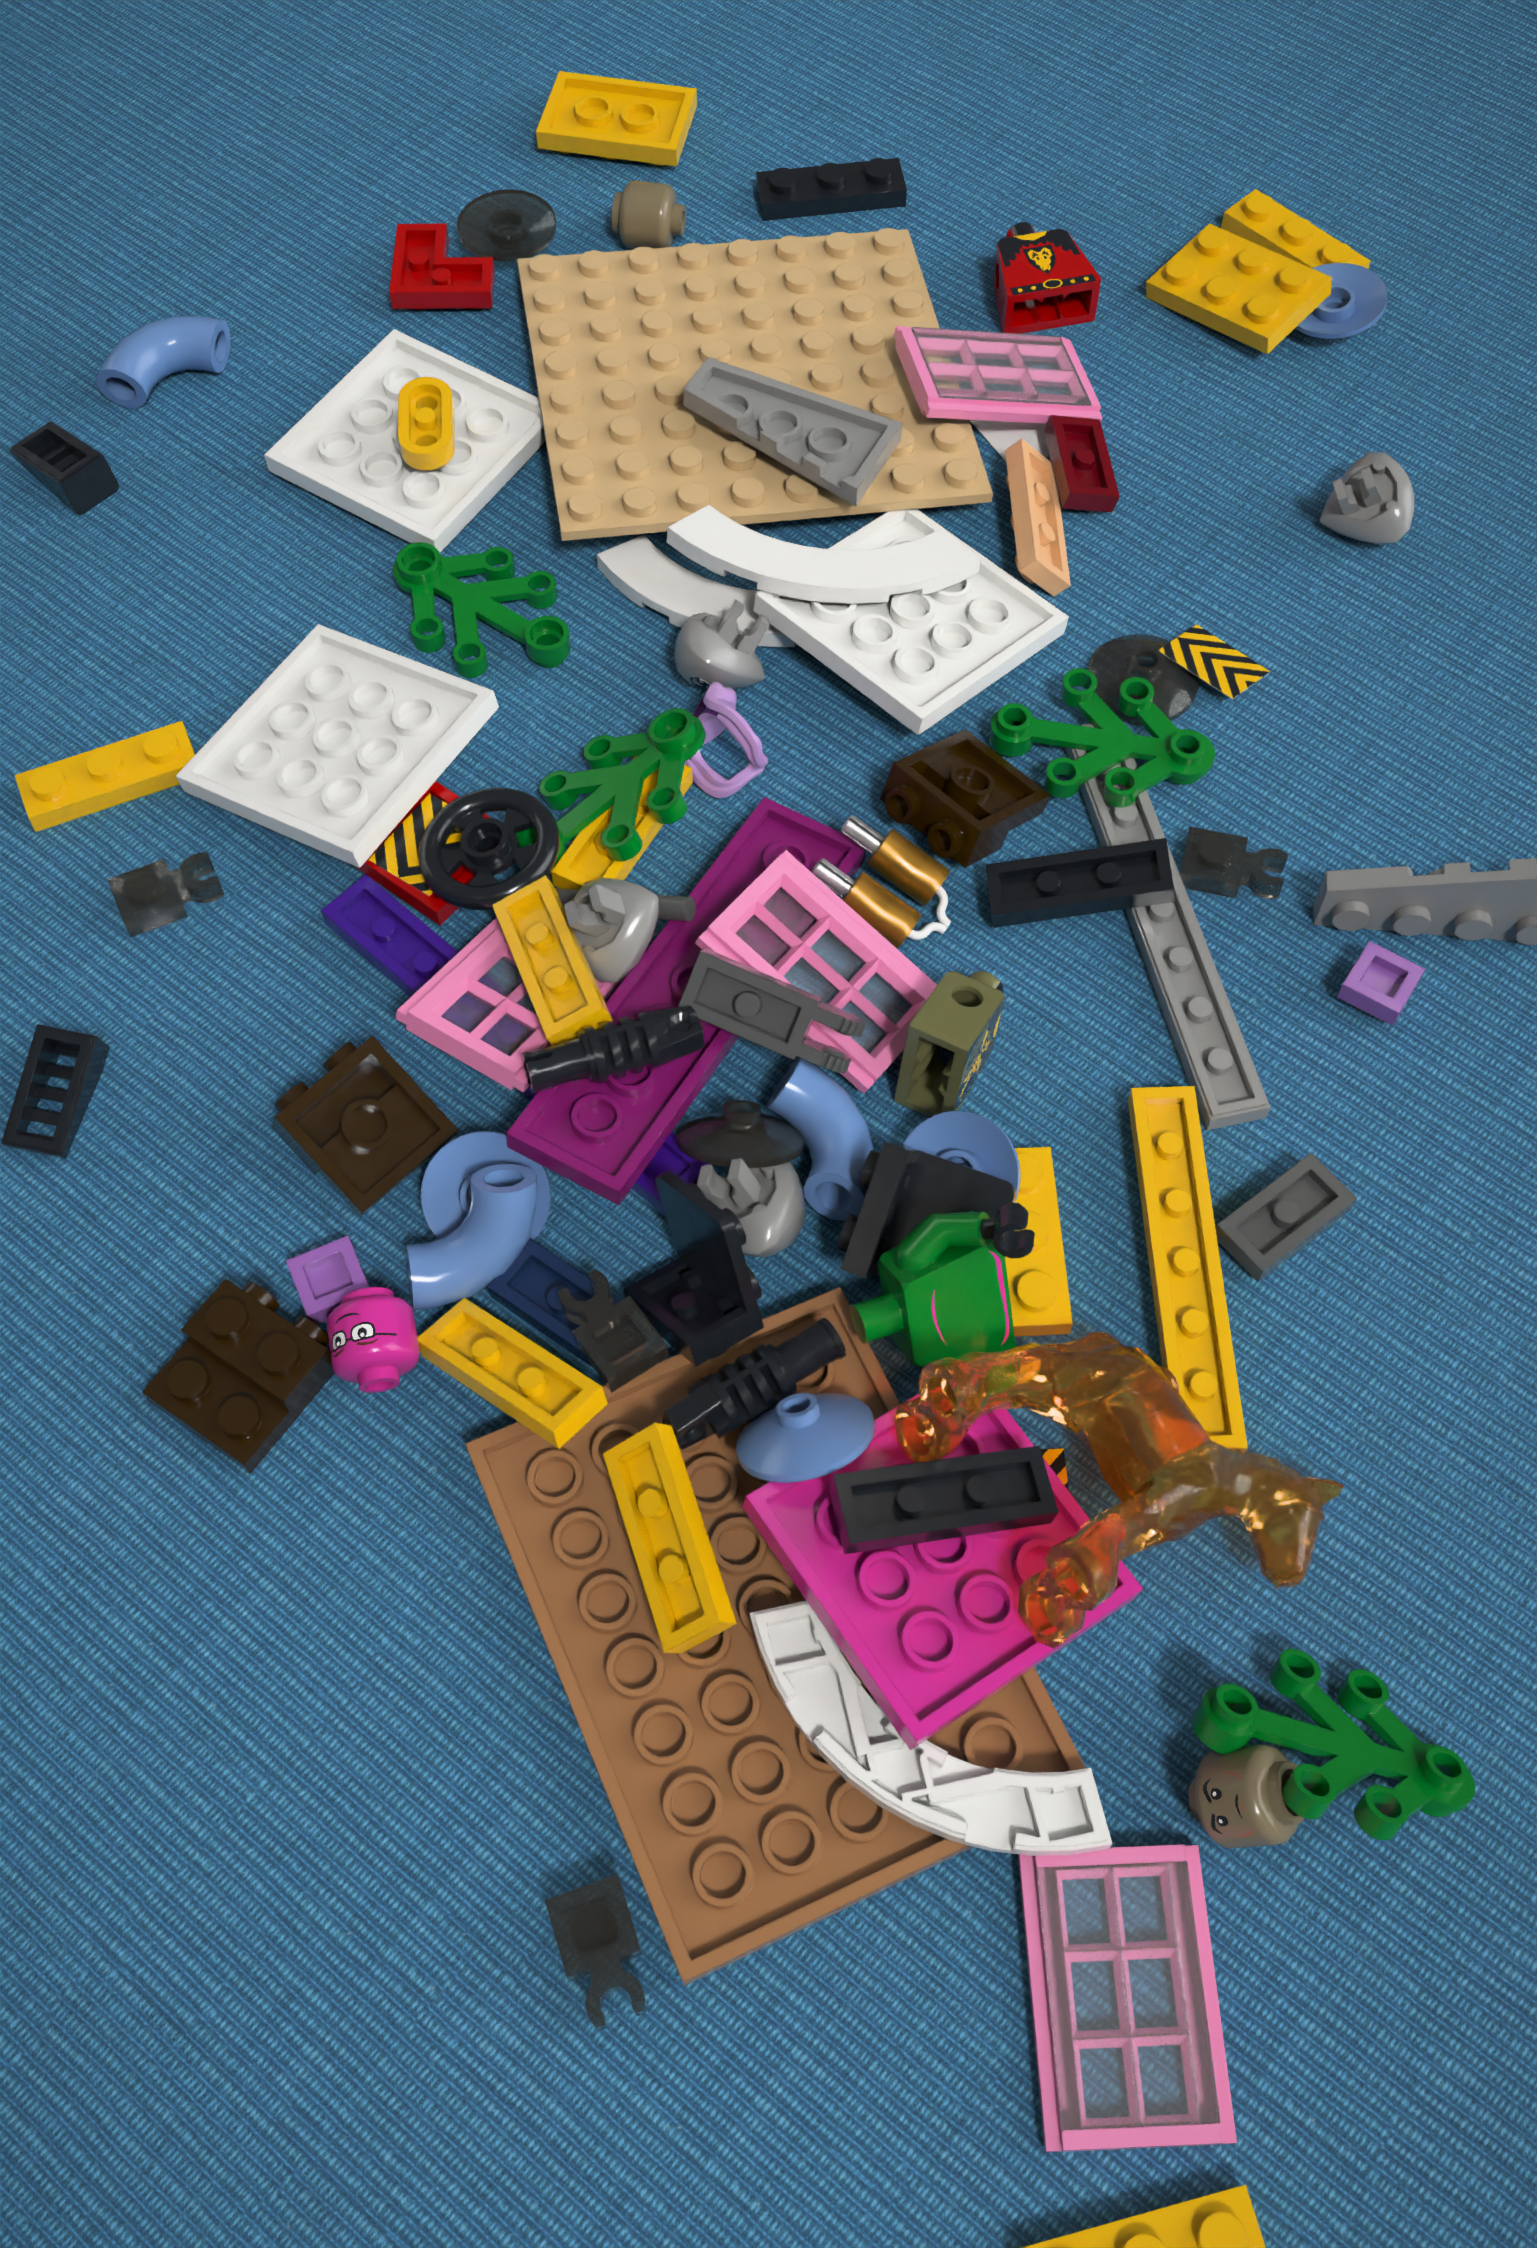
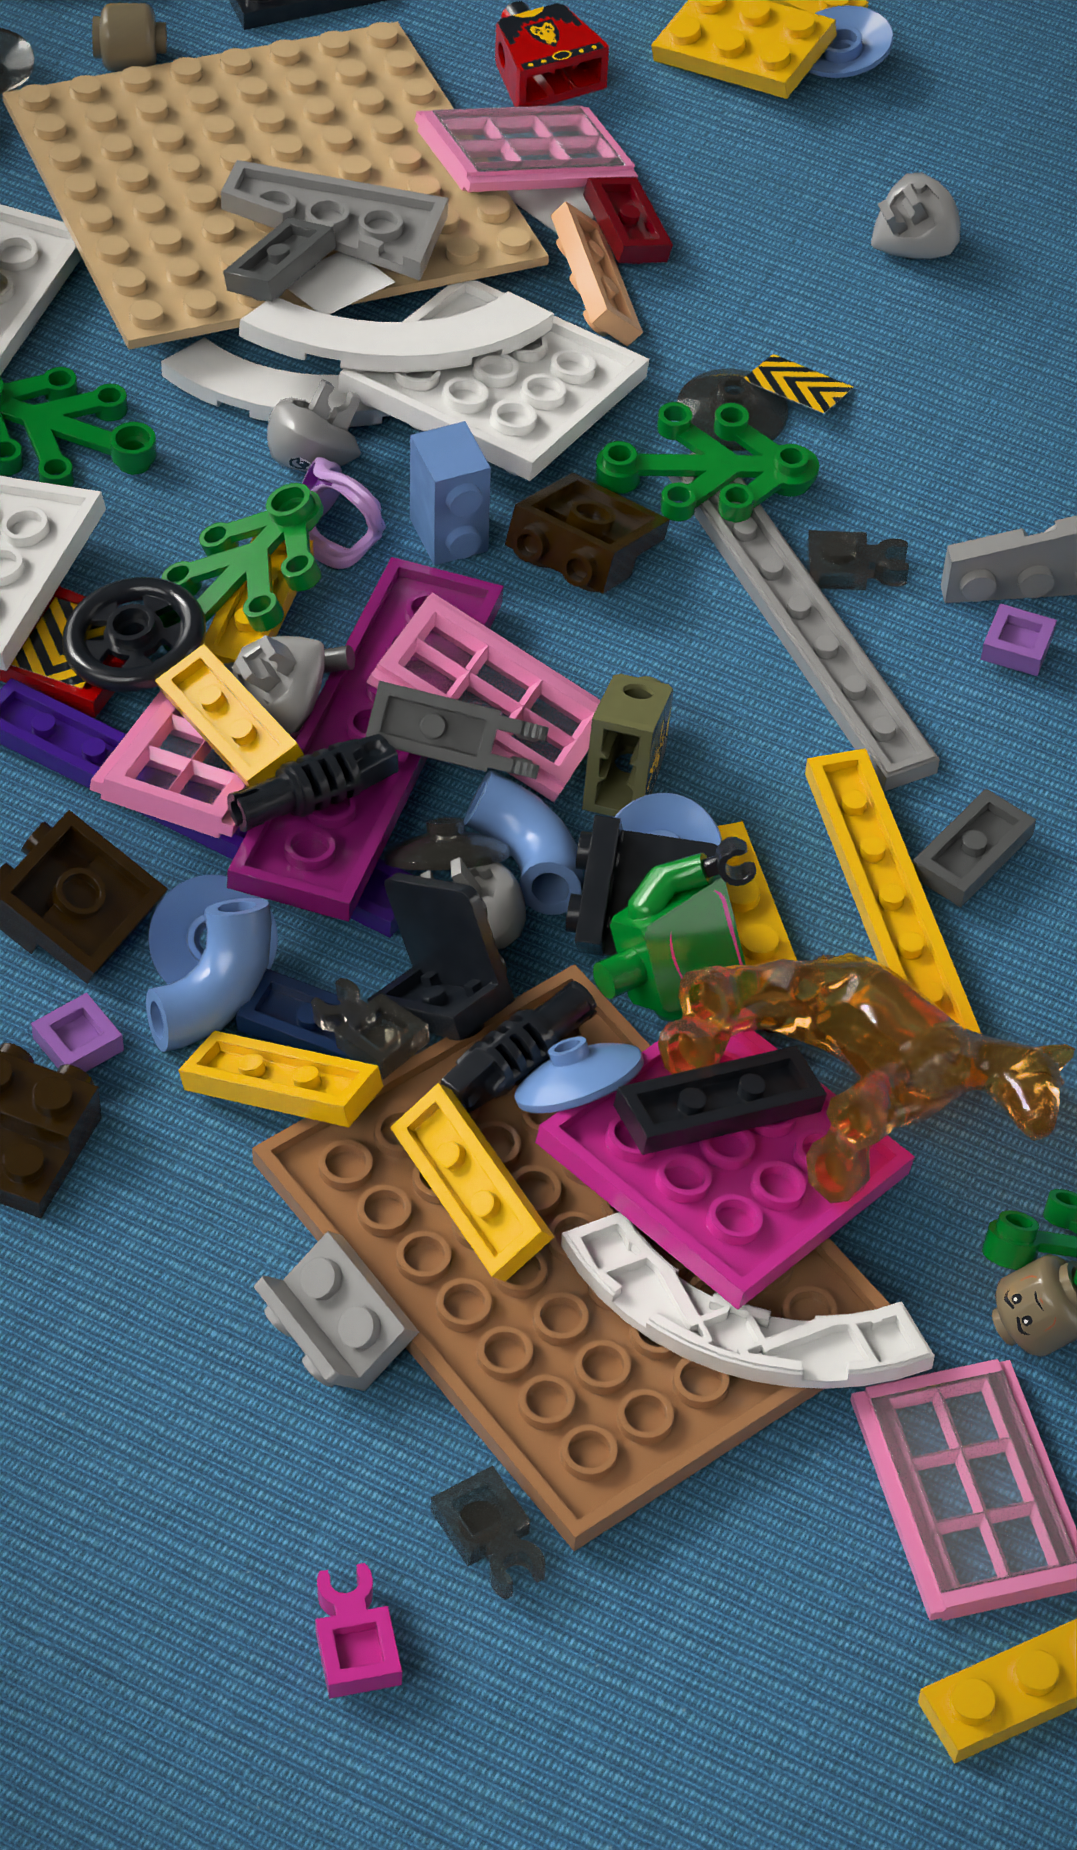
camera: 15 degrees left, 10 degrees down
(372, 1339) = (137, 1075): dark pink head -> none
(430, 2059) = (355, 1641): none -> dark pink plate
(500, 1658) = (337, 1315): none -> light grey bracket
(722, 467) = (279, 259): none -> dark grey plate
(774, 497) = (339, 282): none -> white sticker
(833, 738) = (449, 492): none -> medium blue brick
(901, 865) = (544, 600): pearl gold piece -> none
(1080, 883) = (716, 590): black plate -> none

